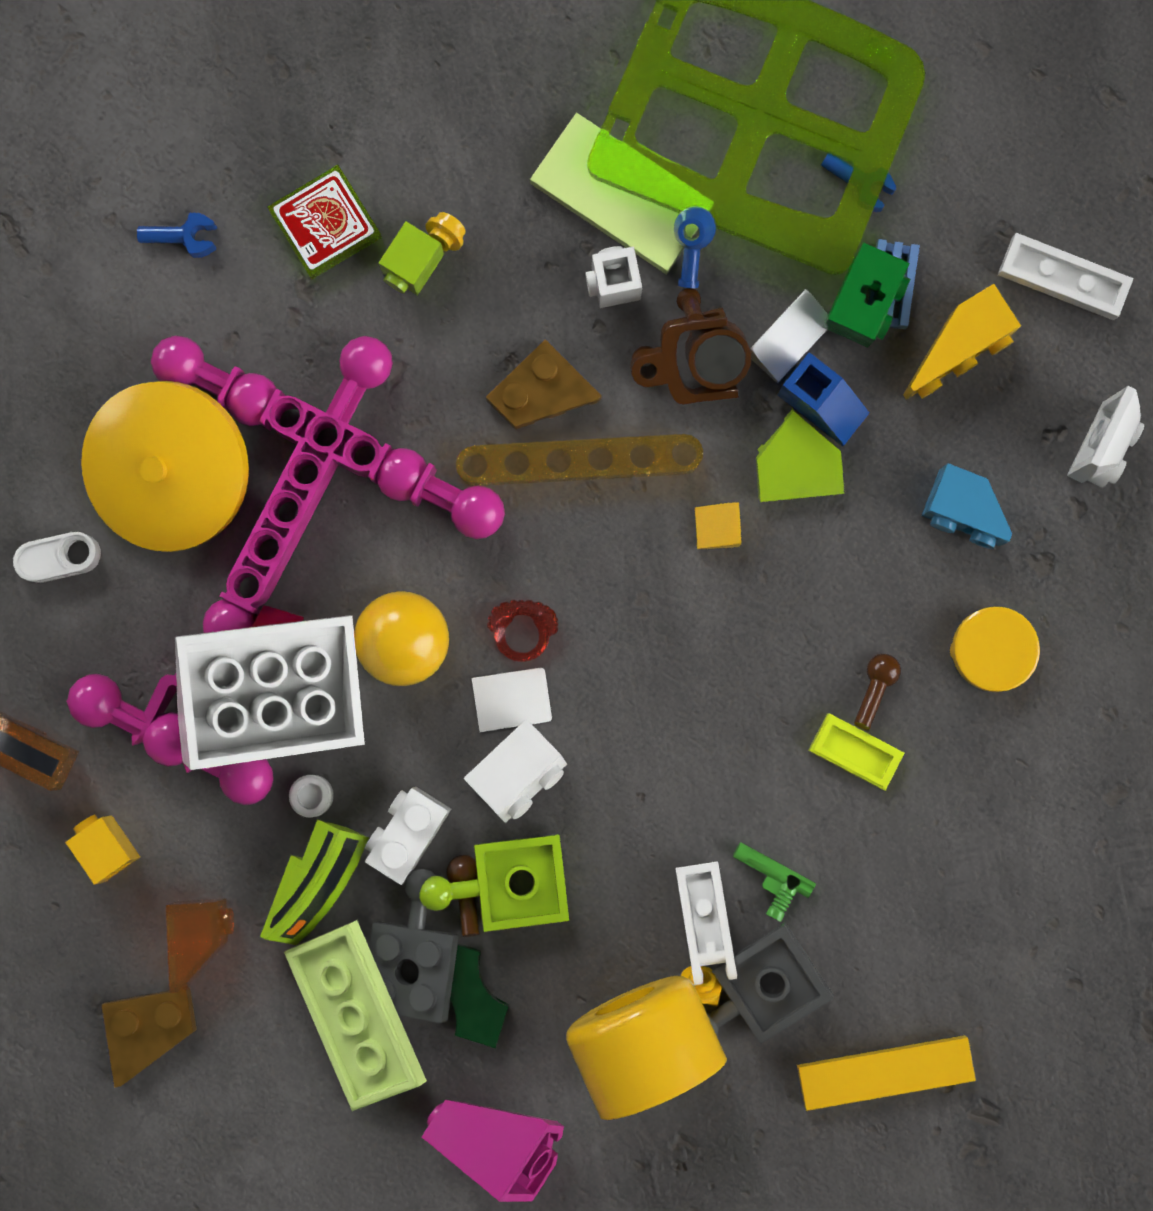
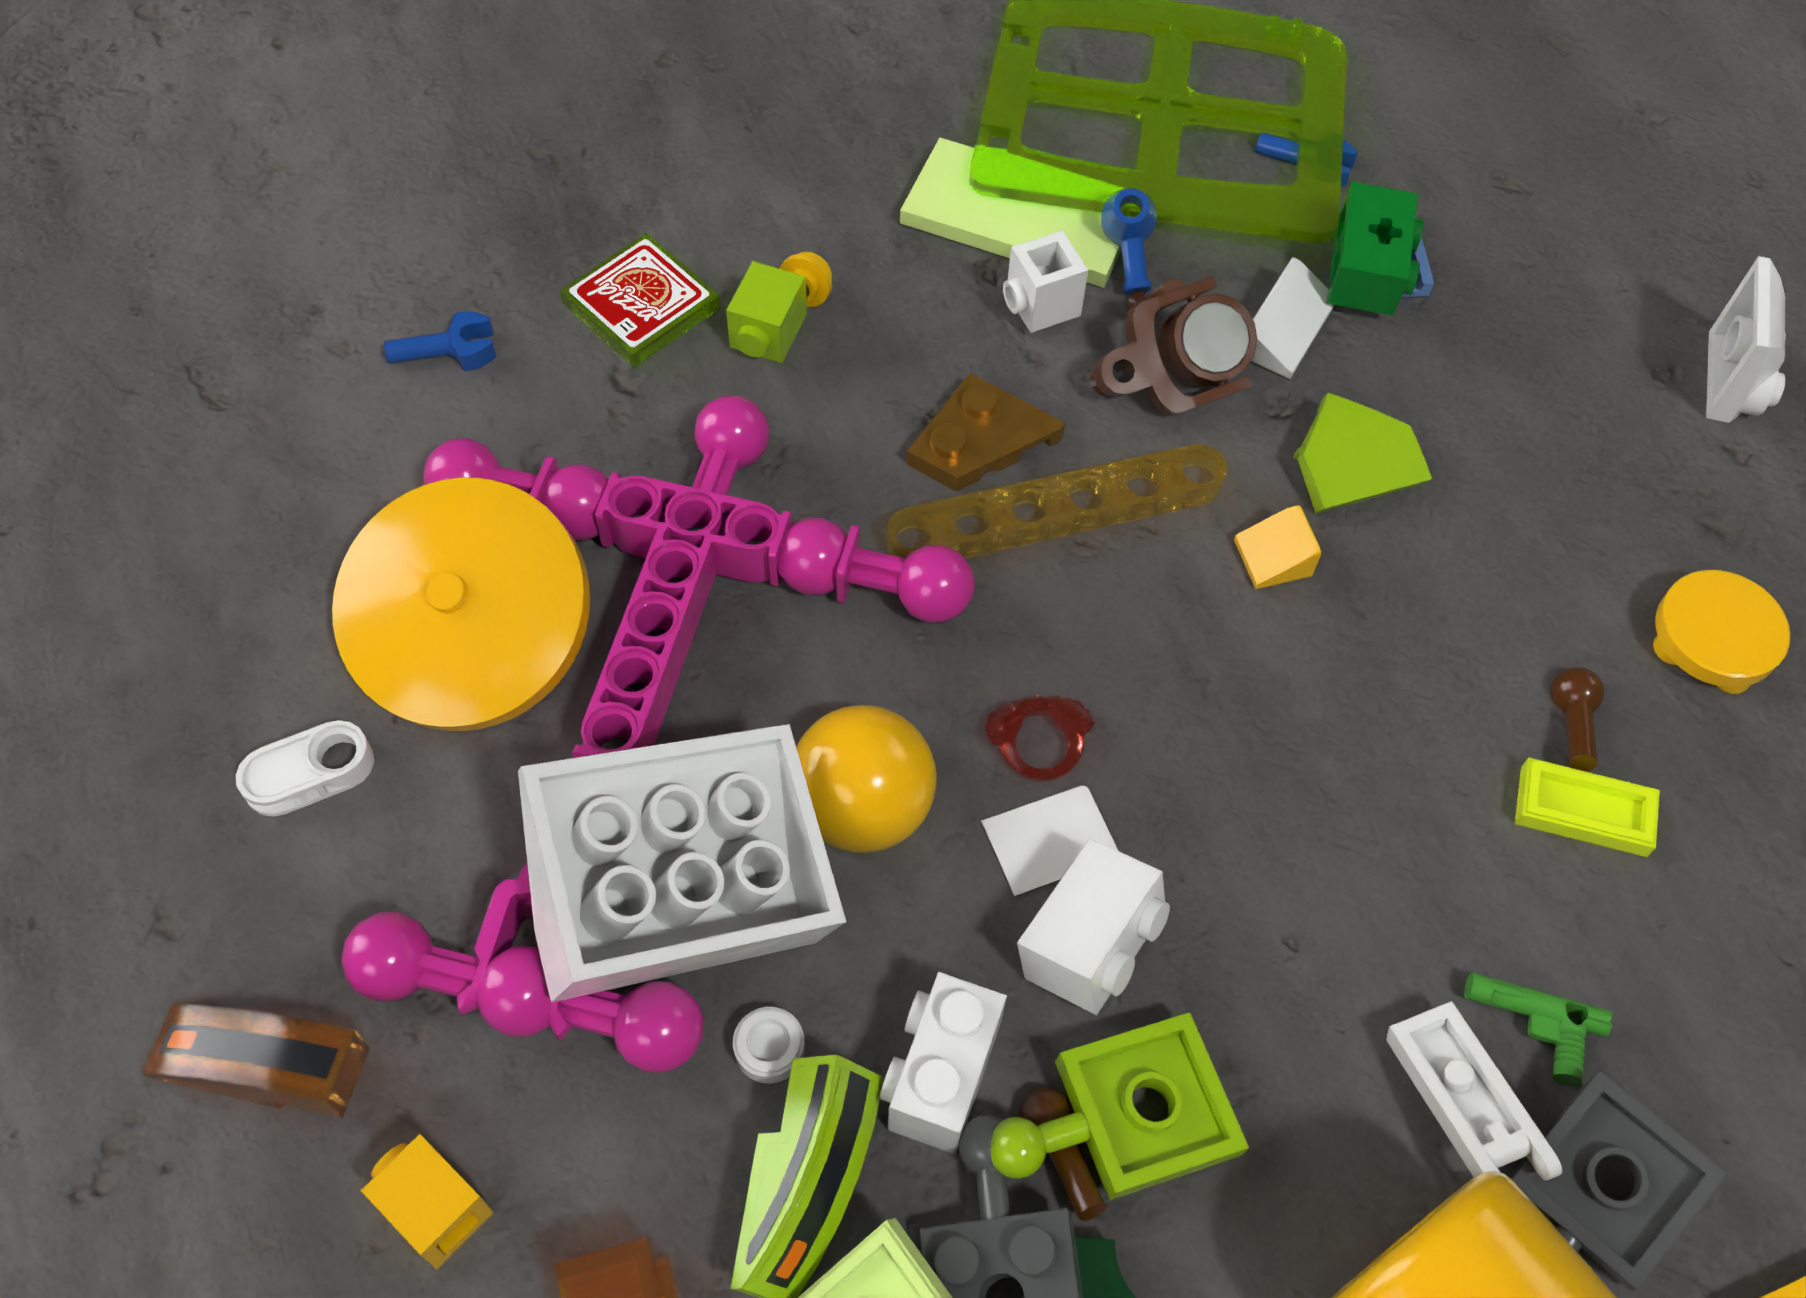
camera: 15 degrees left, 25 degrees down
(824, 399) = (1363, 364): blue slope -> none
(968, 505) = (1605, 462): dark azure slope -> none
(970, 330) = (1517, 272): yellow slope -> none
(1065, 276) = (1602, 203): white plate -> none

